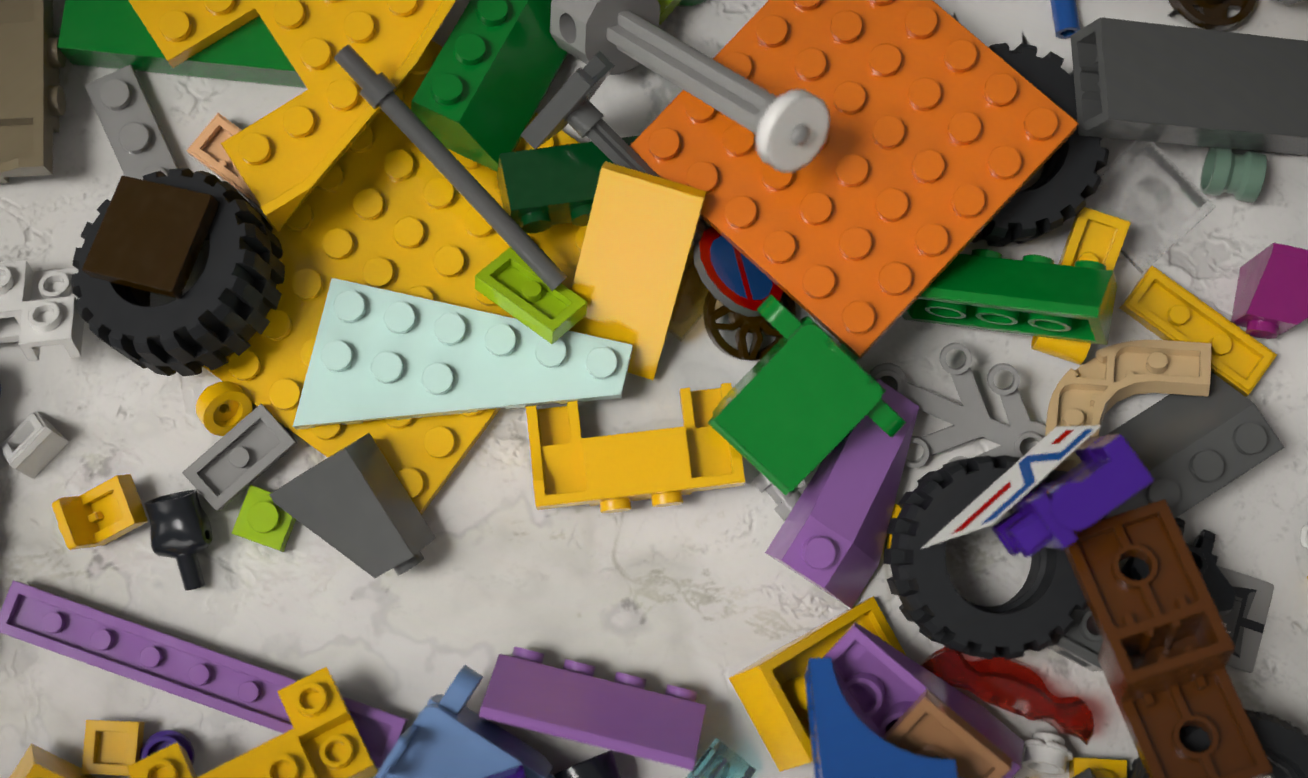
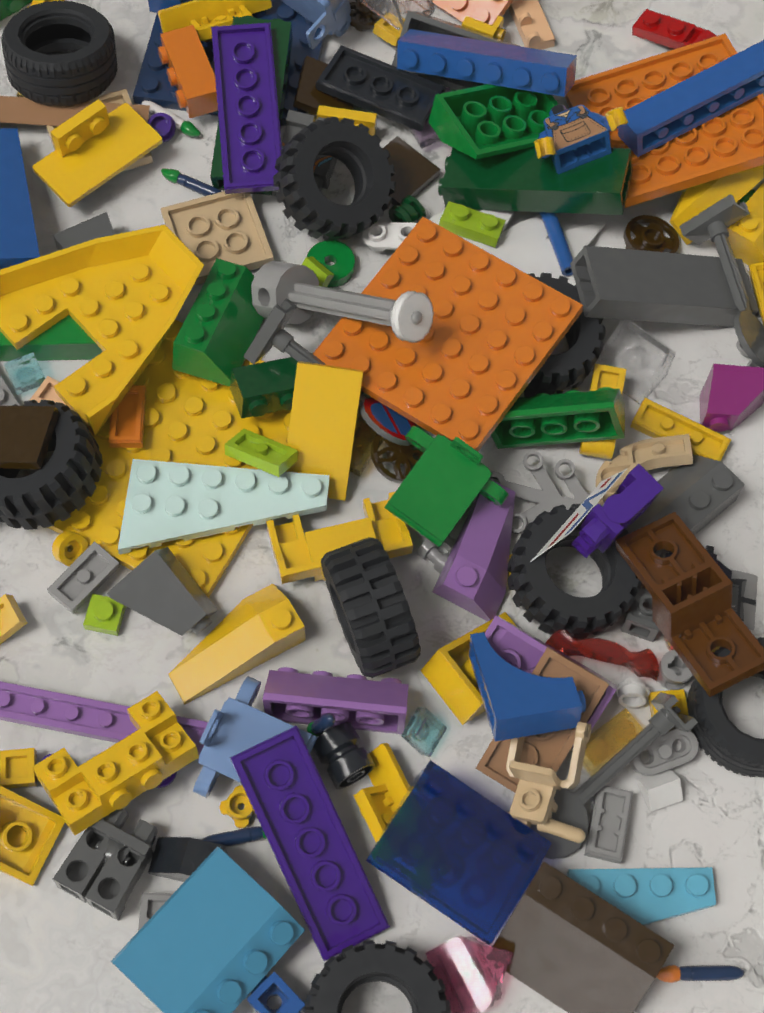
camera: 10 degrees left, 15 degrees down
(180, 532) = (49, 627): black piece -> none
(184, 102) = (24, 373): none -> clear light blue plate
(334, 207) = (129, 420): none -> orange tile
(380, 92) = (155, 338): dark grey bar -> none
(470, 585) = (246, 638): none -> yellow wedge
(564, 755) = (321, 724): none -> dark blue piece
(661, 588) = (371, 607): none -> black tyre
(1109, 728) = (669, 675): none -> light grey wheel
(1233, 173) = (685, 338): sand green wheel -> none

